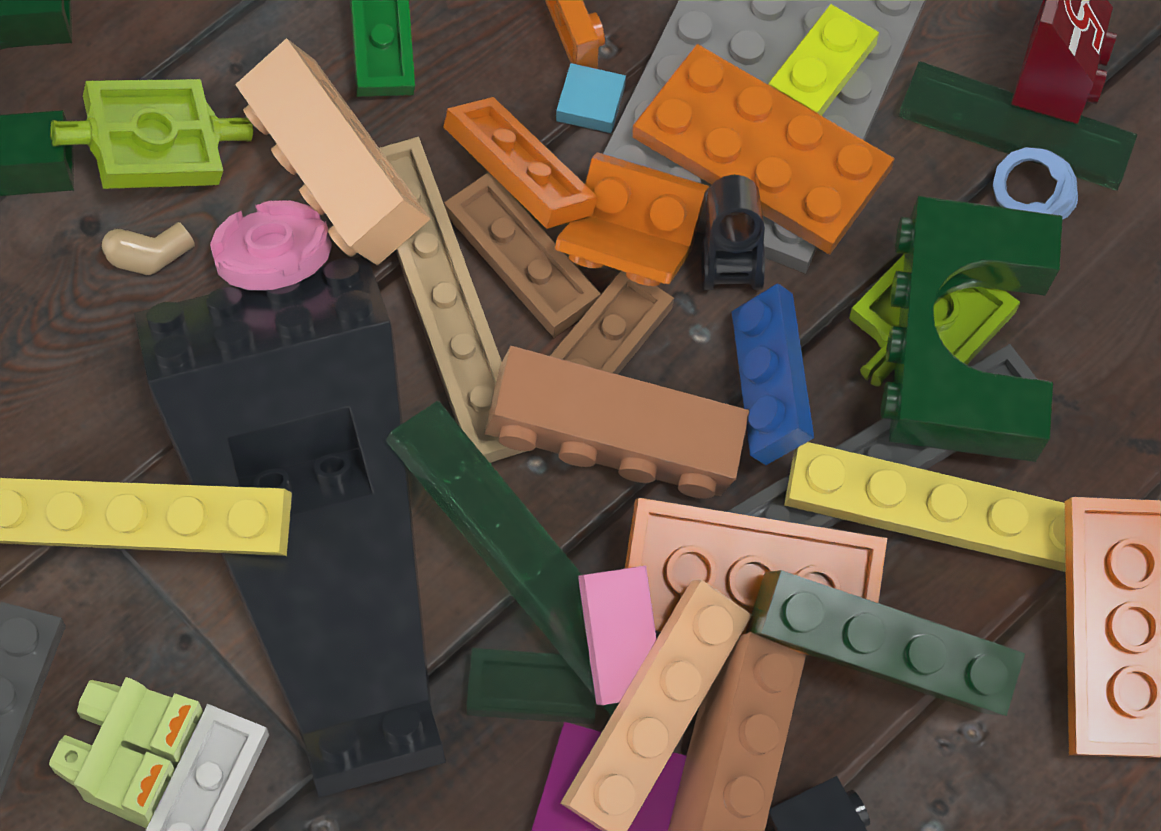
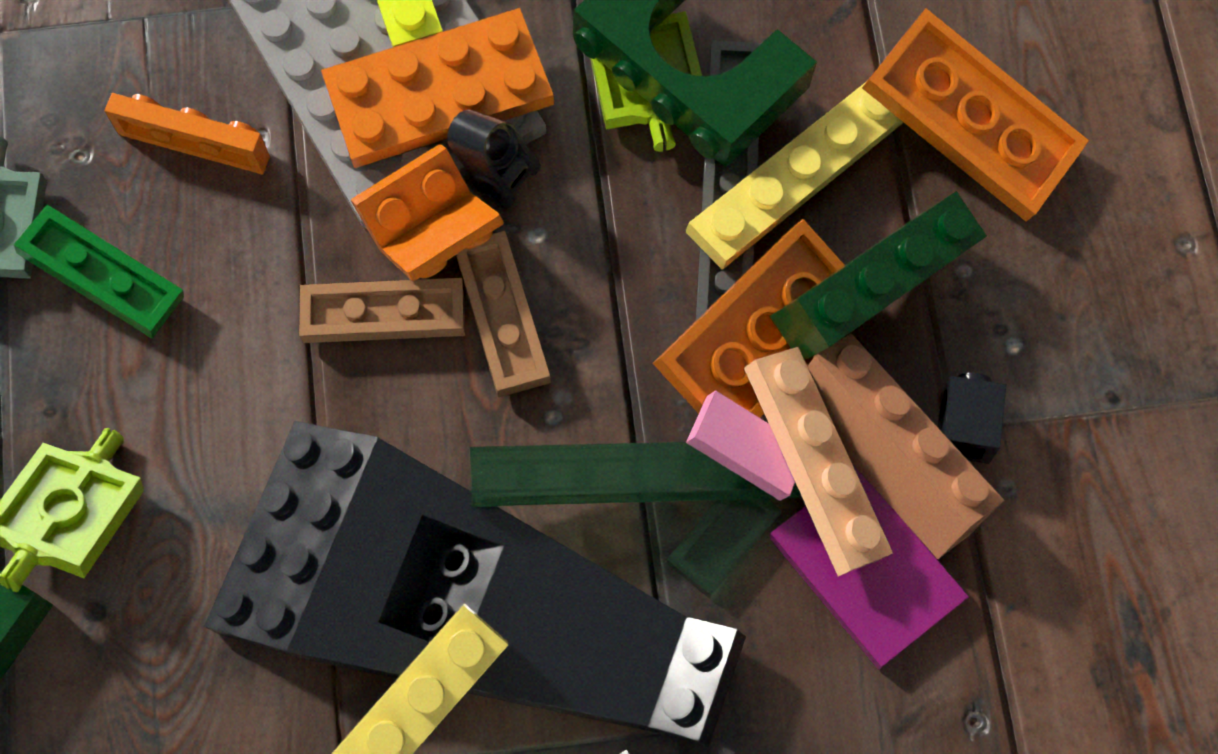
camera: 50 degrees left, 5 degrees up
(143, 253) = (156, 586): tan arm -> none
(272, 246) = (233, 485): bright pink tile -> none
(331, 154) = (193, 386): light nougat brick -> none
(448, 304) = (372, 387): tan plate -> none
(520, 162) = (311, 259): orange plate -> none
(590, 98) = (292, 176): medium azure tile -> none
(616, 423) = (575, 338): nougat brick -> none
(772, 374) = (619, 206): blue plate -> none

